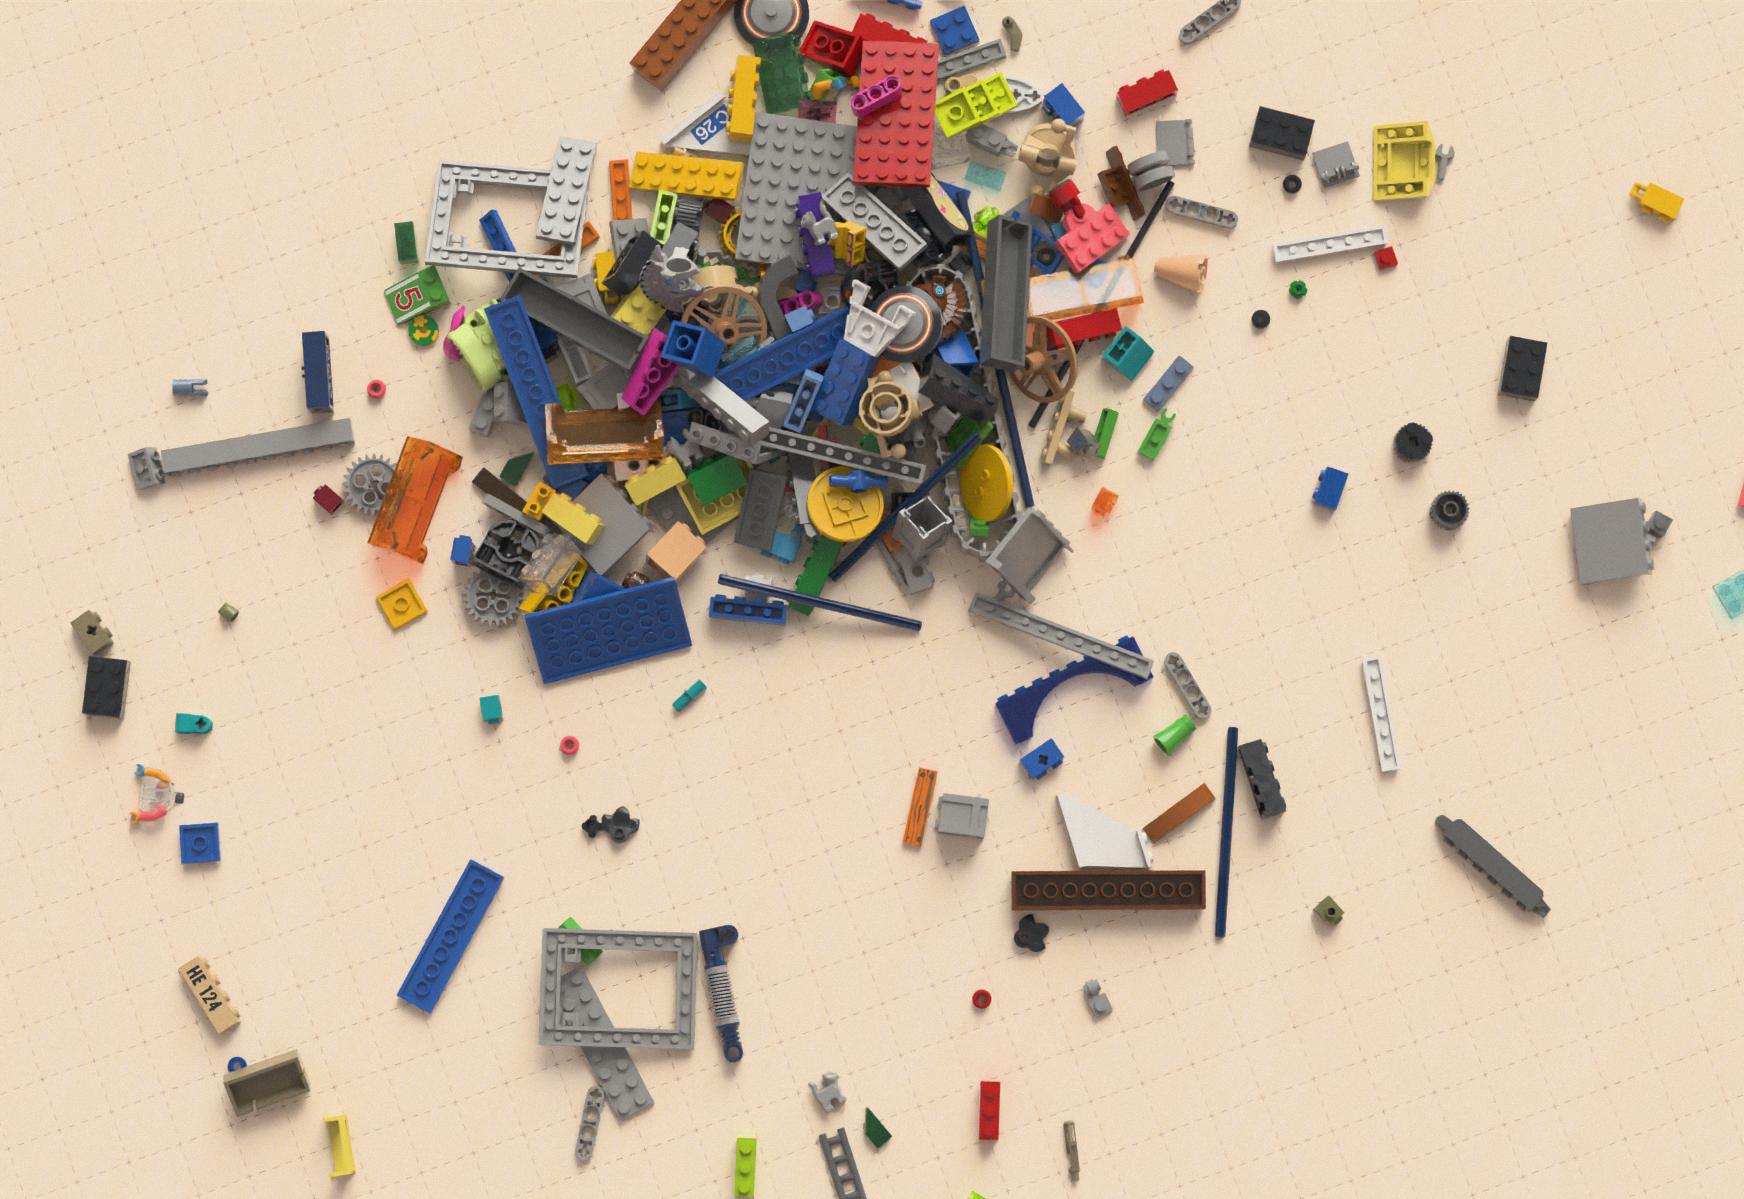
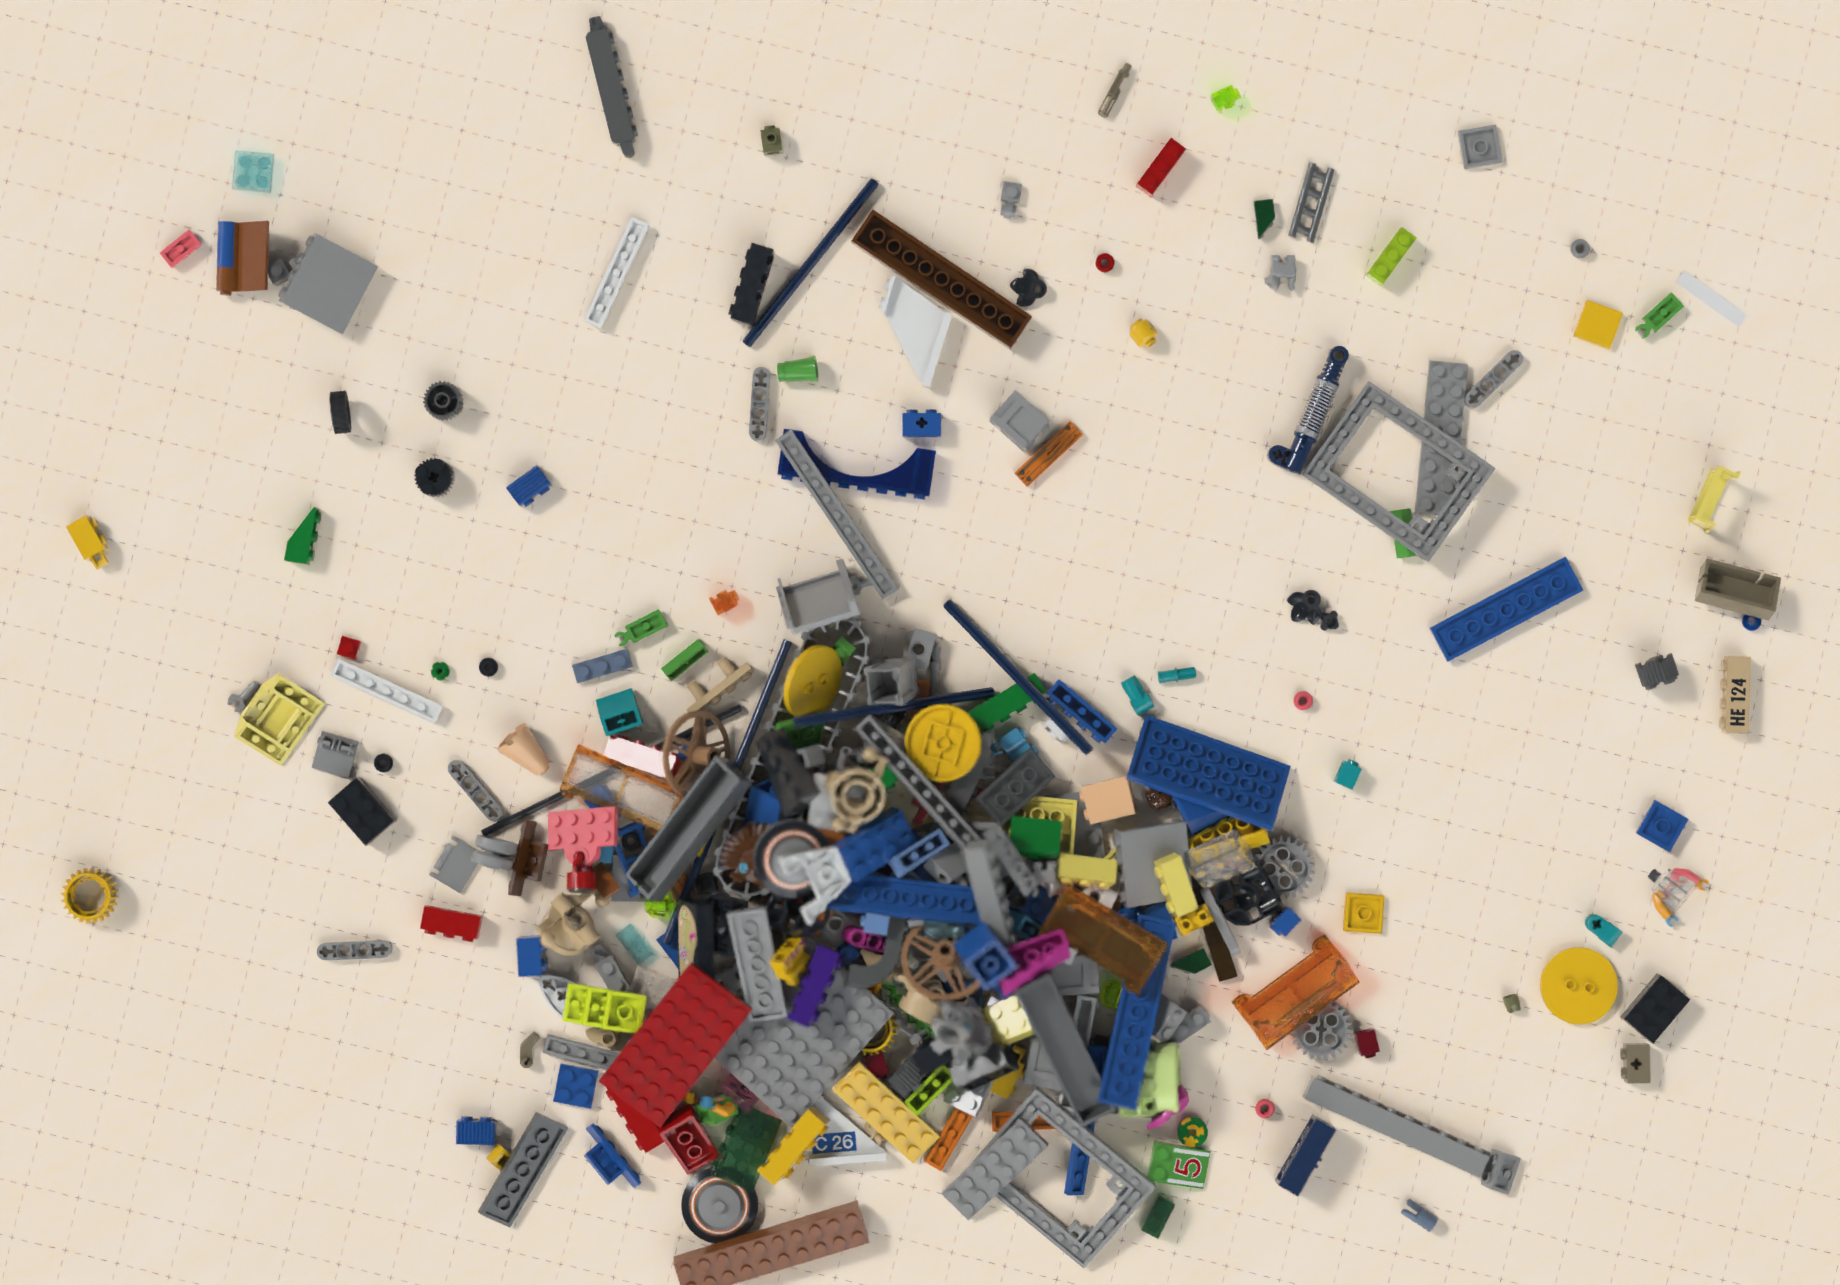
camera: 145 degrees left, 5 degrees up
(182, 664) = (1578, 985): none -> yellow plate
(289, 968) = (1657, 670): none -> dark grey brick
(707, 654) = (1138, 698): none -> teal piece
(820, 228) = (807, 987): light grey animal -> none
(858, 481) = (919, 753): blue pin -> none
(880, 88) = (691, 1065): dark pink beam -> none
(909, 961) = (1143, 333): none -> yellow head
(1083, 443) = (708, 662): flat silver brick -> none
(1179, 813) = (838, 304): dark orange slope -> none
(1483, 314) = (301, 543): none -> green slope
(1522, 368) = (300, 477): black brick -> none
(1527, 443) = (340, 412): none -> black tyre
(1697, 516) = (242, 256): none -> dark orange door

